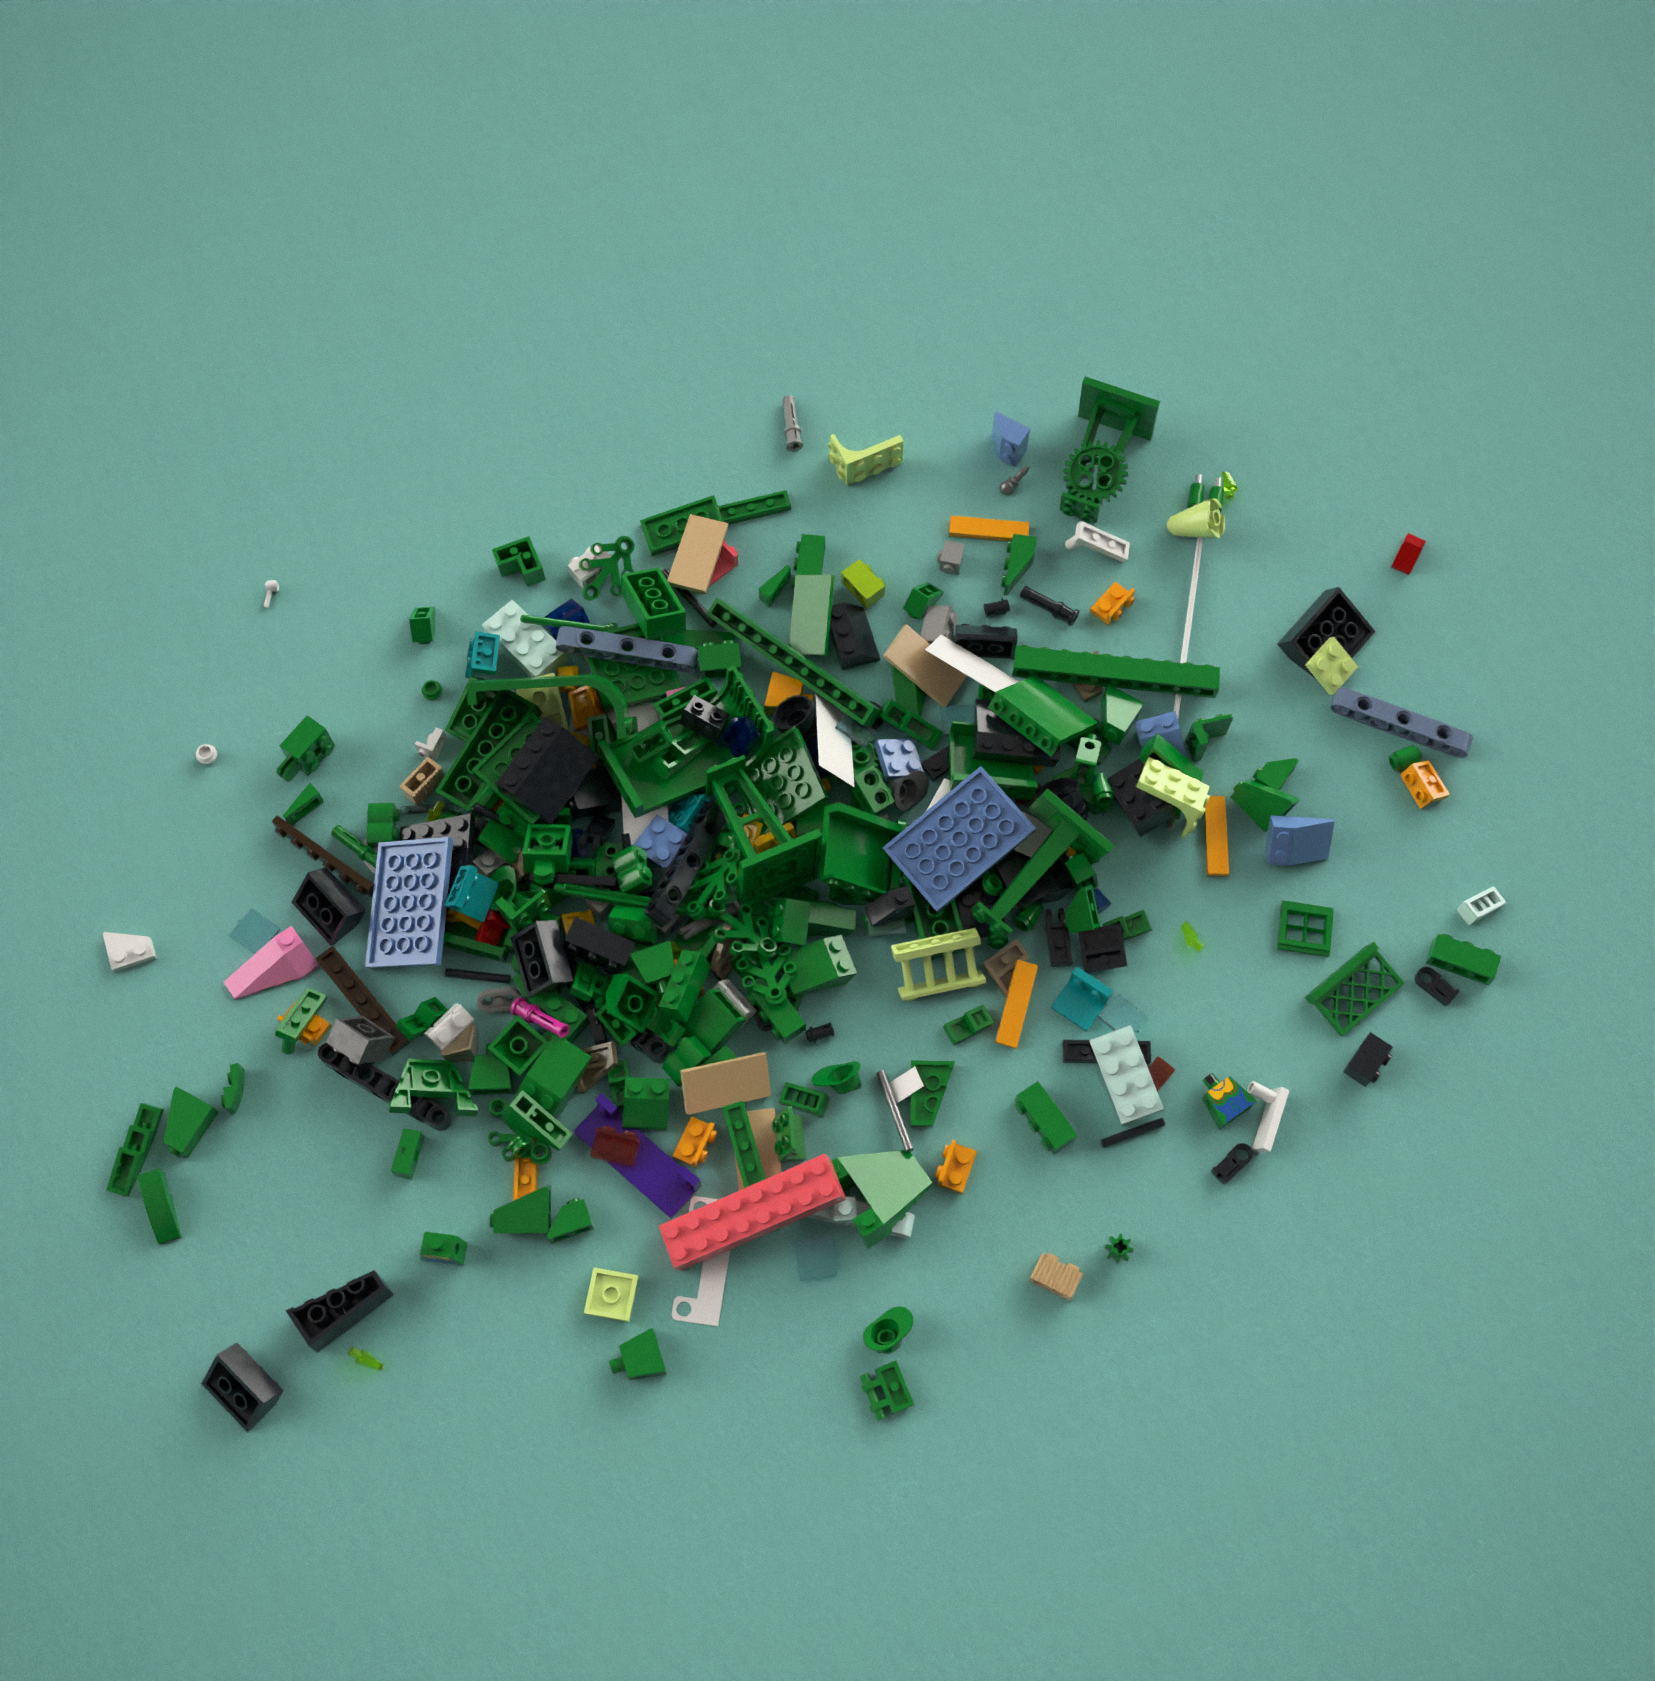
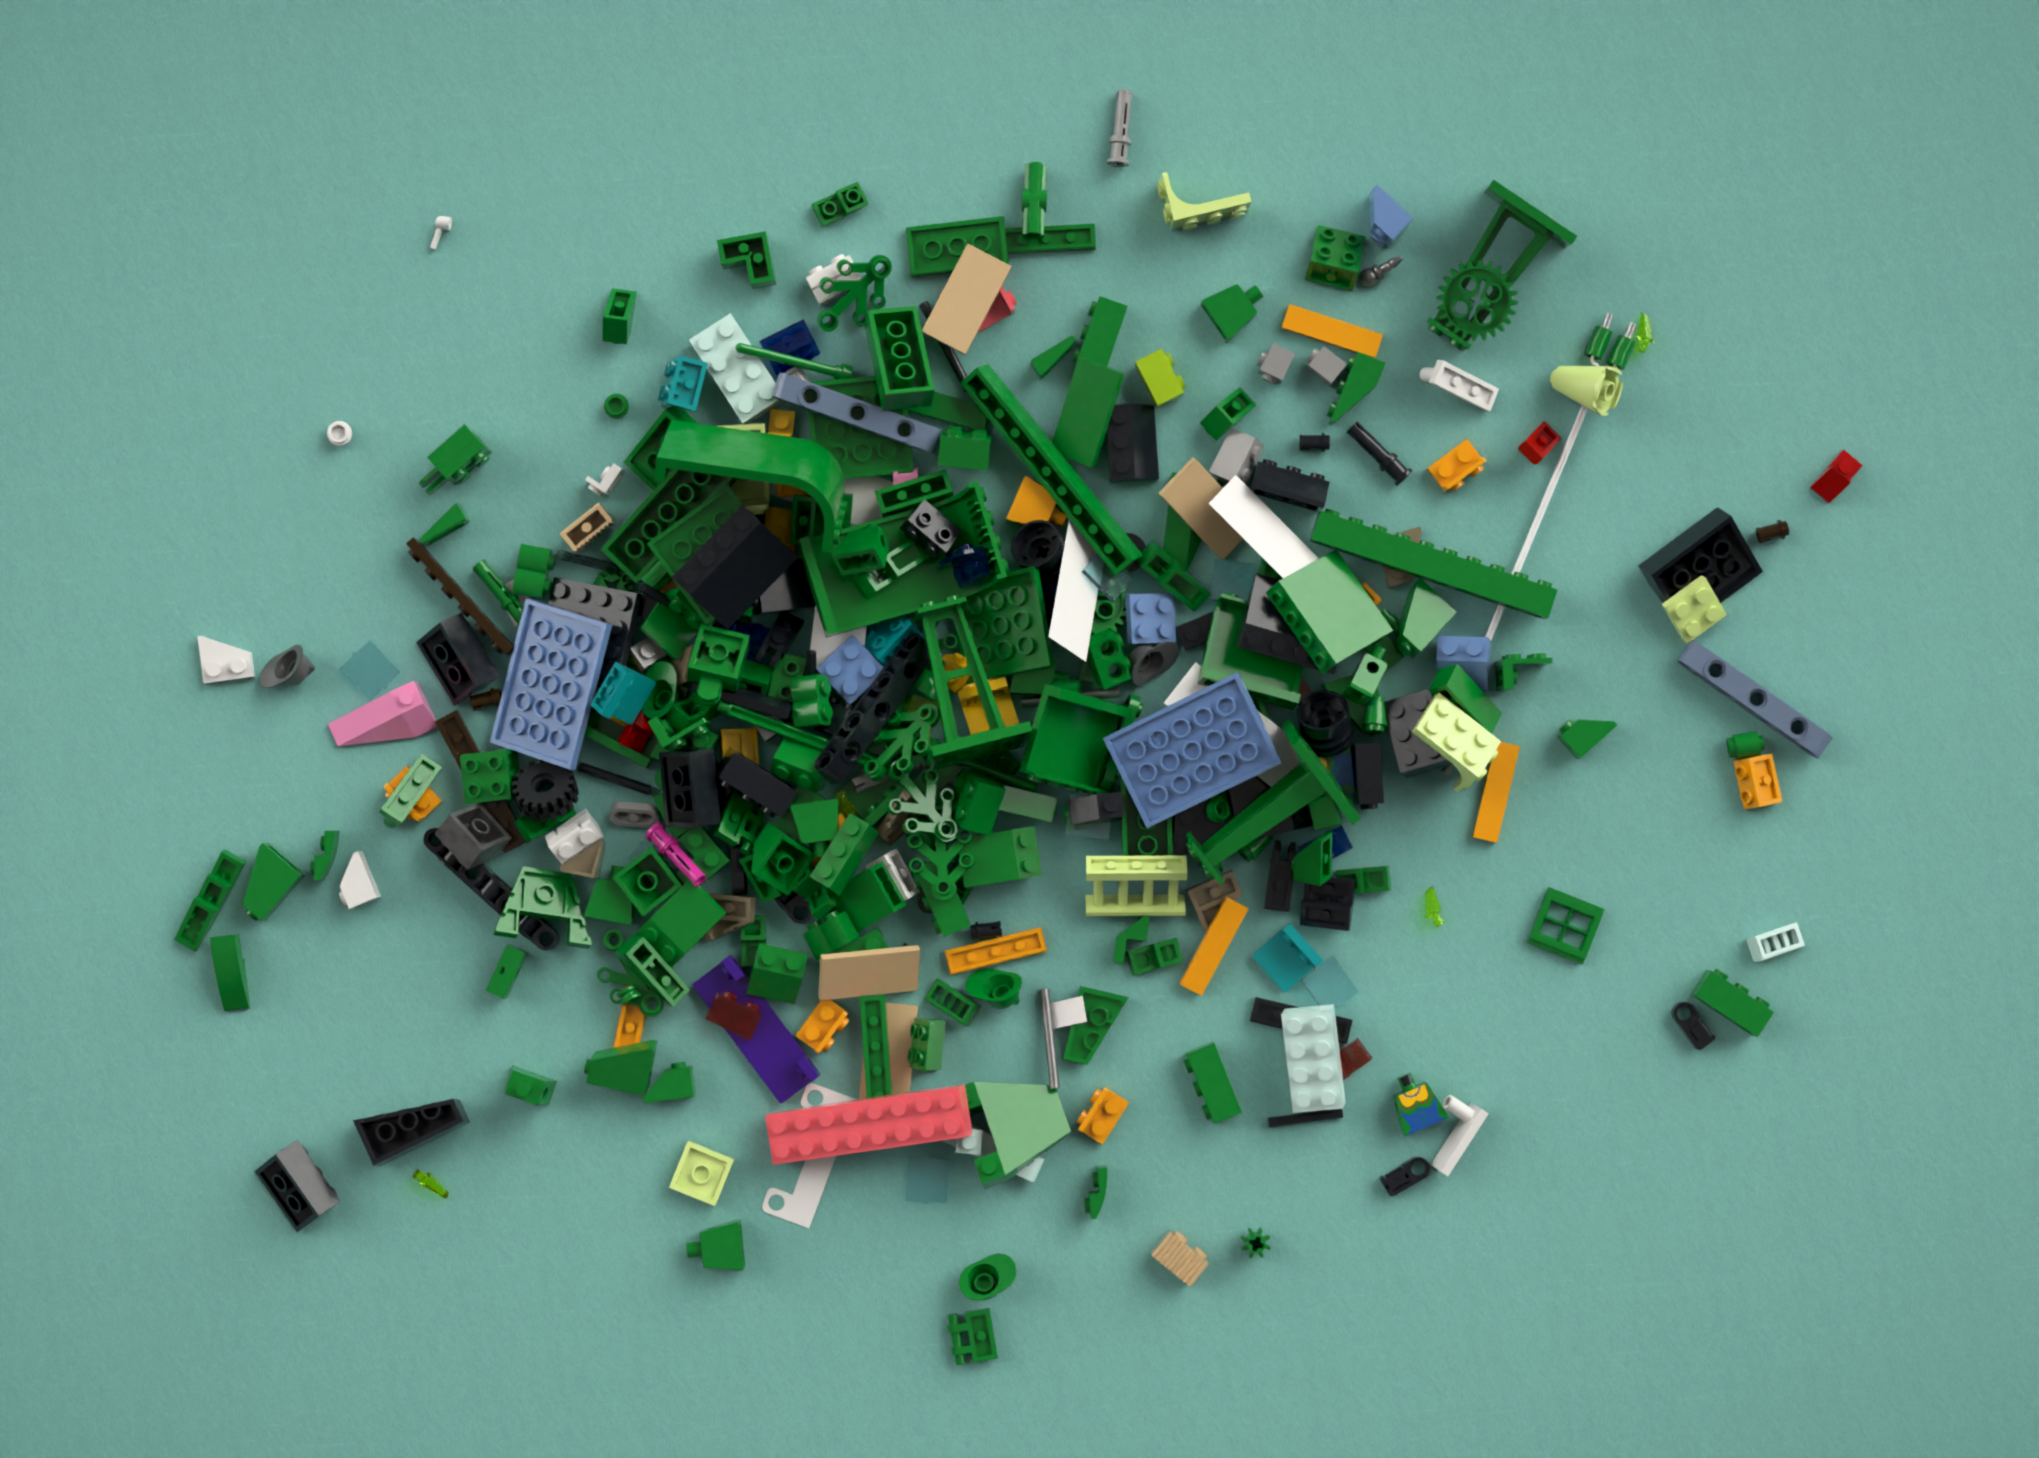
camera: 10 degrees right, 20 degrees up
(184, 942) = (287, 667): none -> dark grey piece
(265, 1106) = (358, 883): none -> white slope
(356, 934) = (486, 699): none -> dark brown pin
(369, 991) = (489, 775): none -> green bracket
(418, 991) = (548, 803): none -> black tyre
(435, 812) = (596, 573): clear neon green bar -> none
(587, 514) = (840, 204): none -> green slope
(735, 481) = (1034, 201): none -> green piece
(831, 1049) = (995, 950): none -> light orange tile
(906, 527) = (1231, 309): none -> green torso
(947, 1007) = (1136, 931): none -> green slope
(968, 1239) = (1096, 1198): none -> green slope
(978, 479) = (1335, 258): none -> green bracket
(990, 551) = (1325, 365): none -> light grey brick
(1106, 823) = (1367, 775): none -> black brick
(1171, 575) = (1539, 443): none -> red slope
(1262, 801) = (1559, 768): green slope -> none
(1298, 840) = (1585, 824): medium blue slope -> none
(1345, 972) = (1588, 991): green fence -> none
(1368, 1059) = (1588, 1096): black brick -> none
(1374, 600) = (1772, 531): none -> dark brown pin

